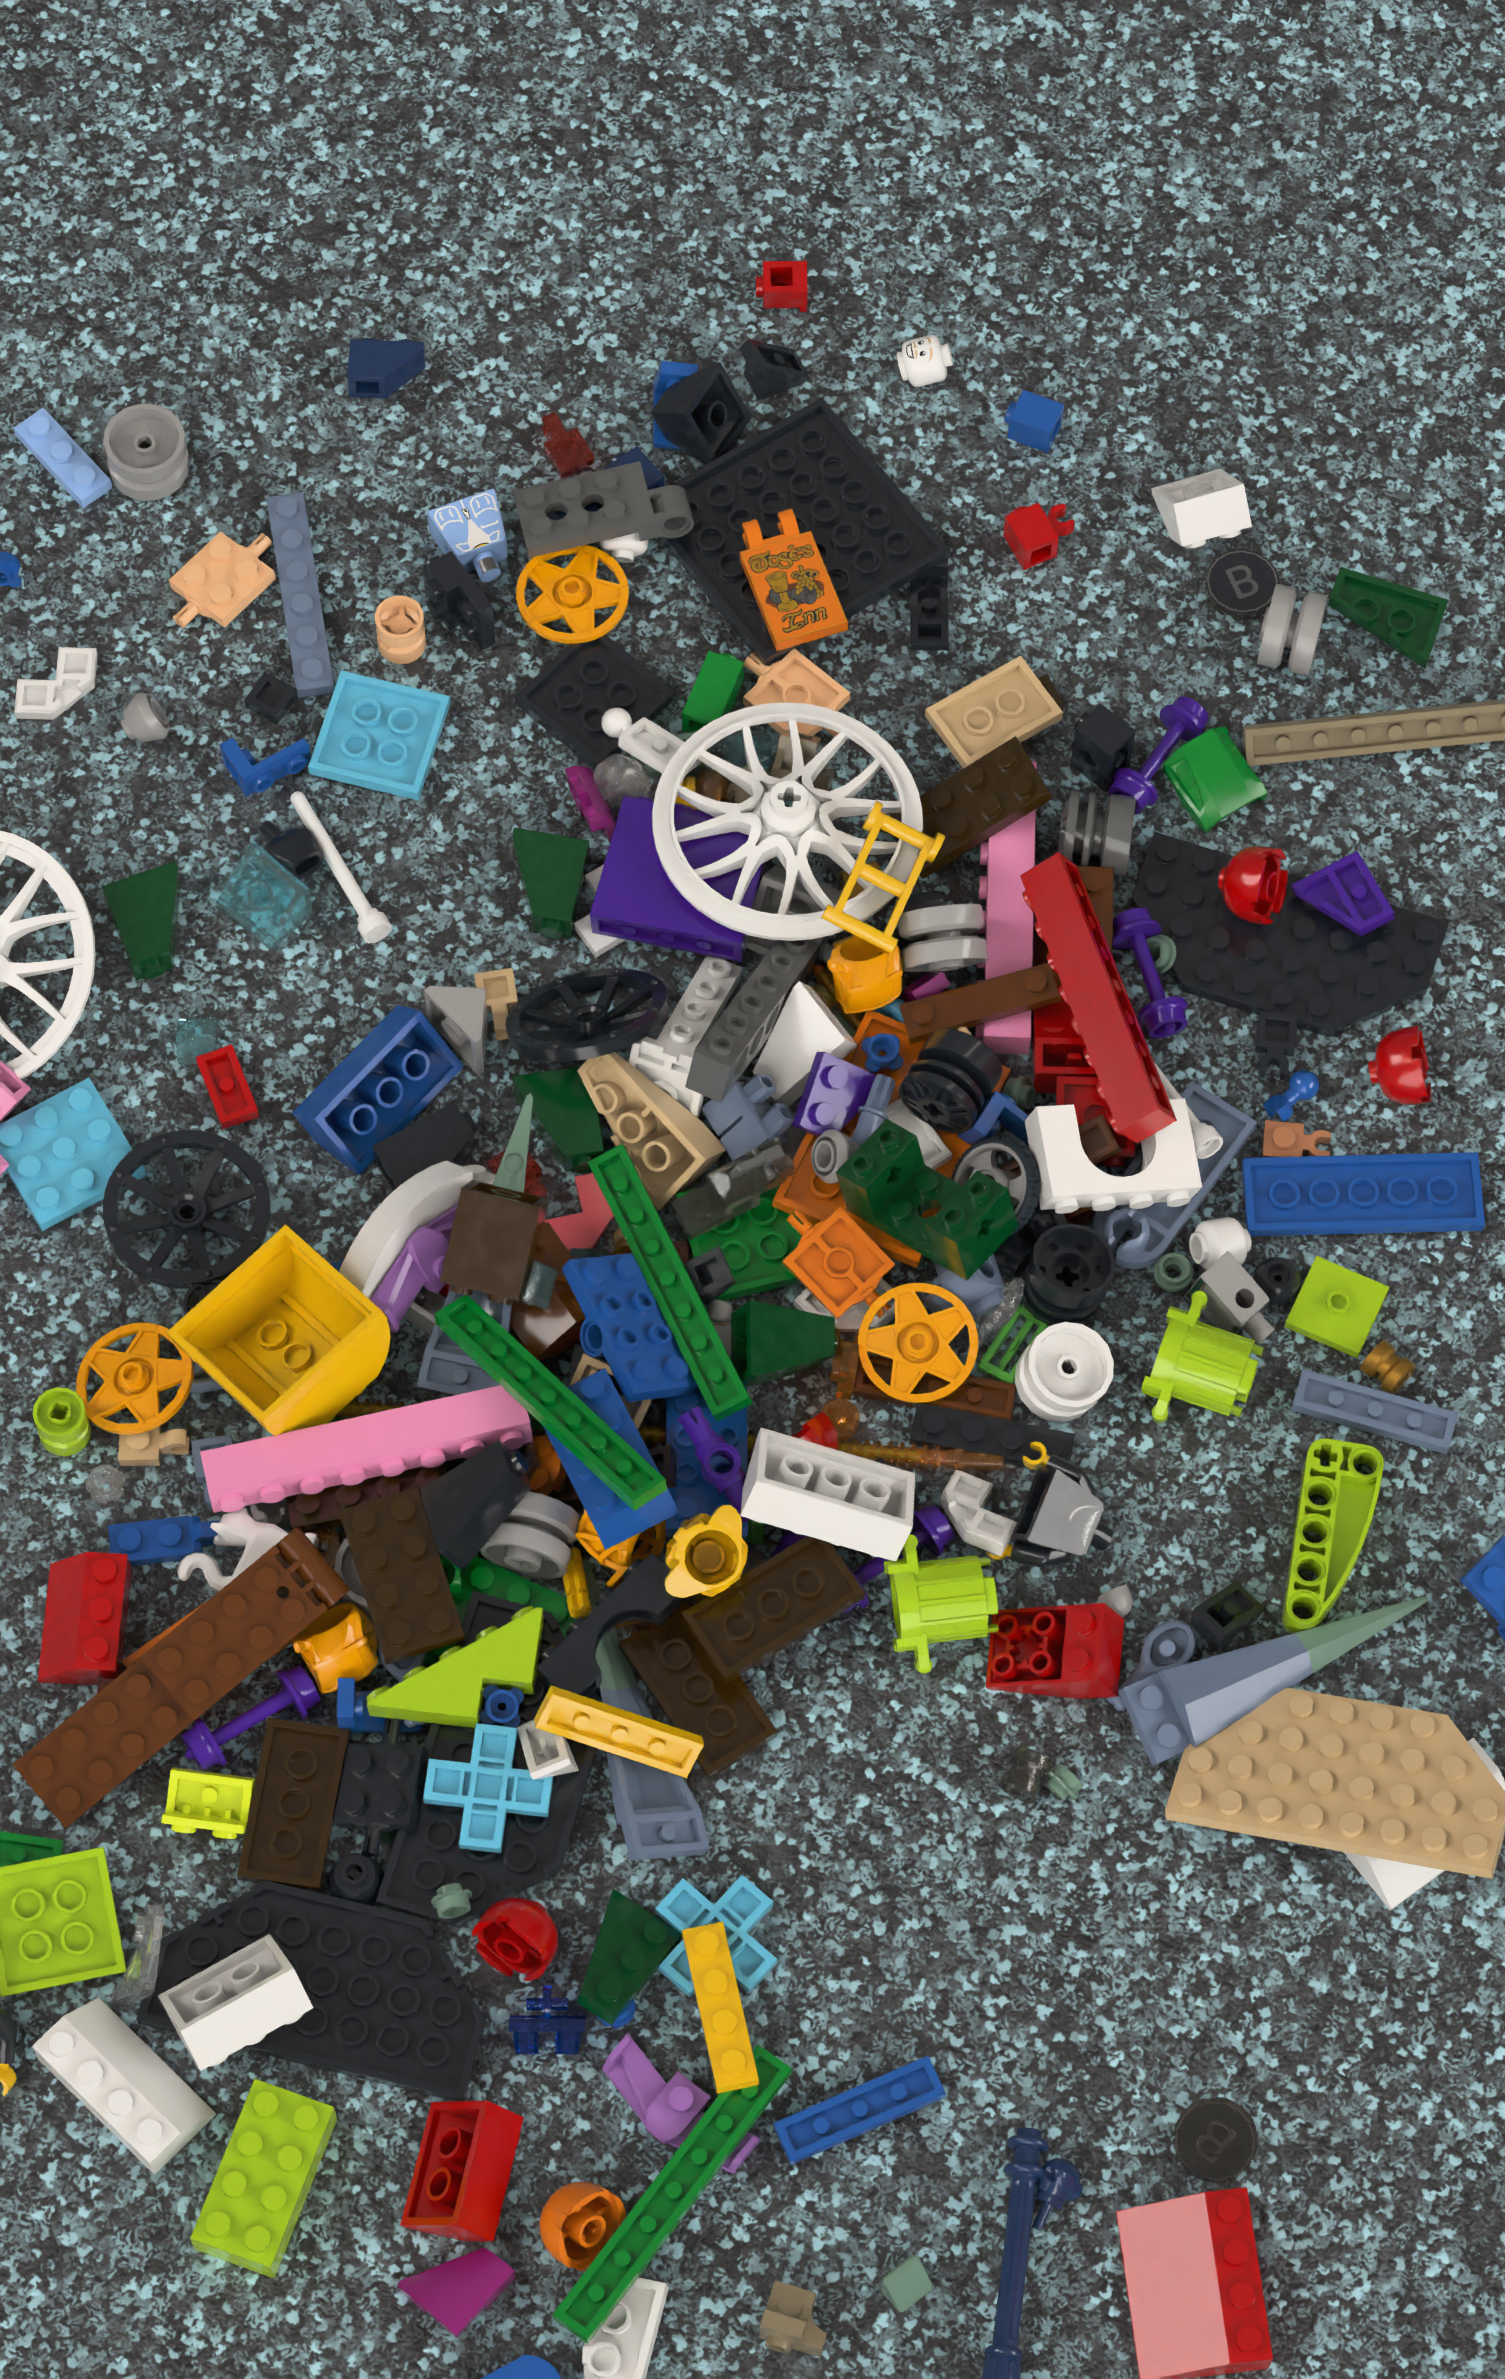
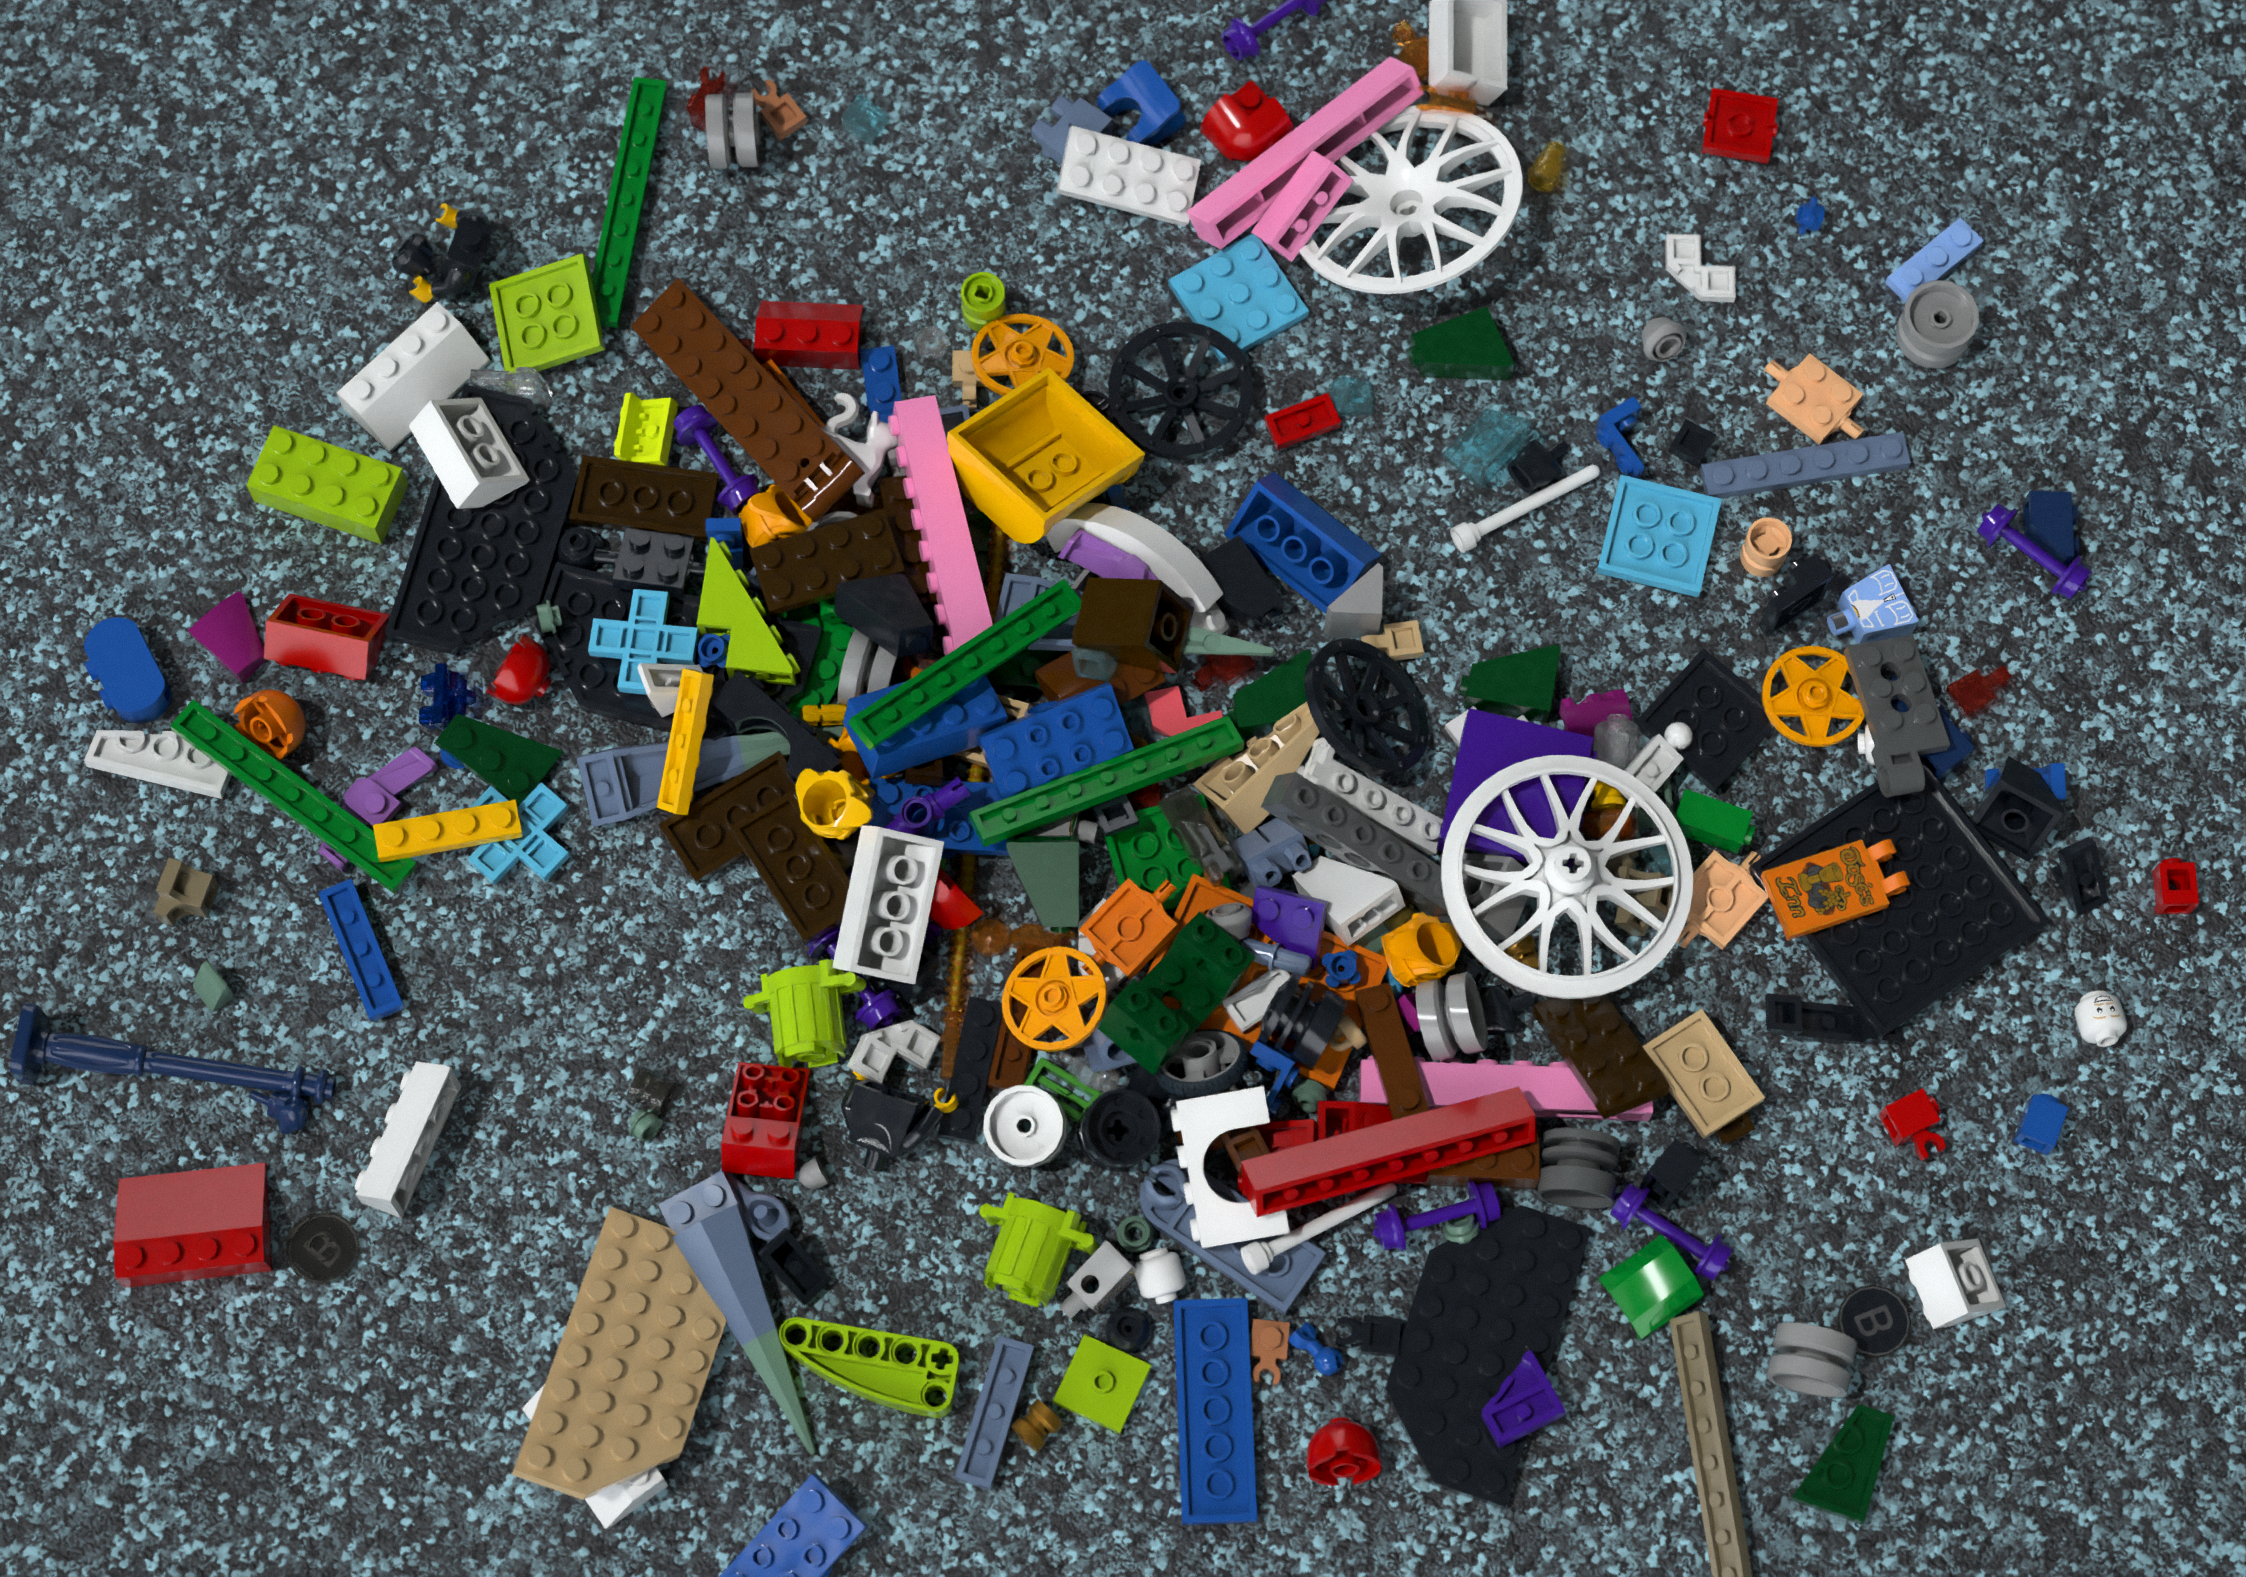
camera: 90 degrees right, 5 degrees up
(382, 411) = (1998, 524): none -> dark purple piece
(929, 849) = (1559, 947): yellow piece -> none
(1090, 2038) = (408, 1138): none -> white slope
(1254, 883) = (1524, 1311): red cylinder -> none

